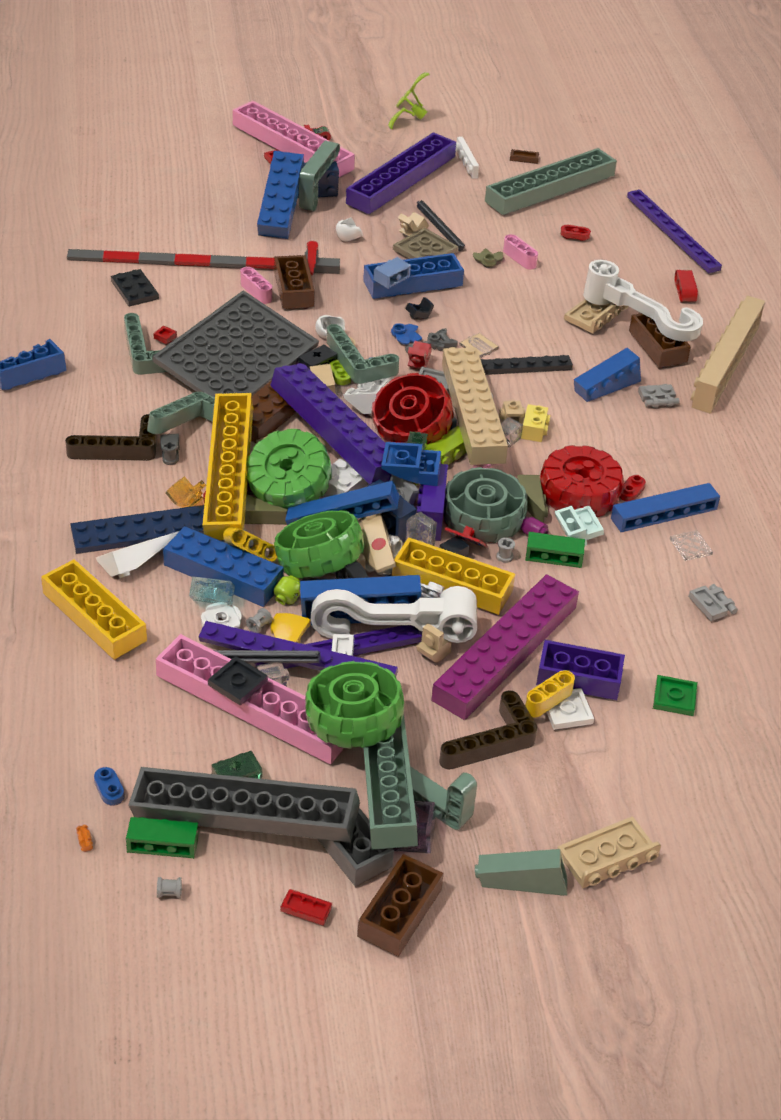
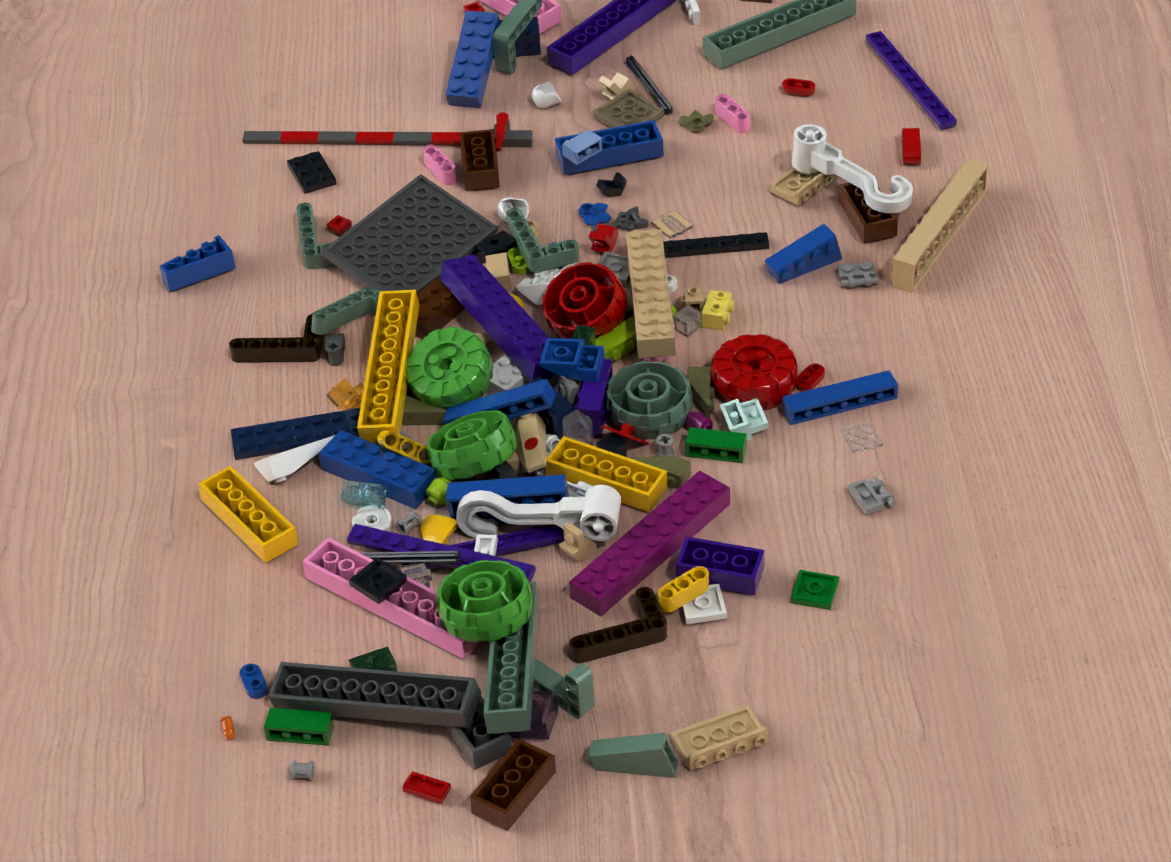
camera: 10 degrees right, 0 degrees up
(523, 571) = (677, 469): none -> olive slope

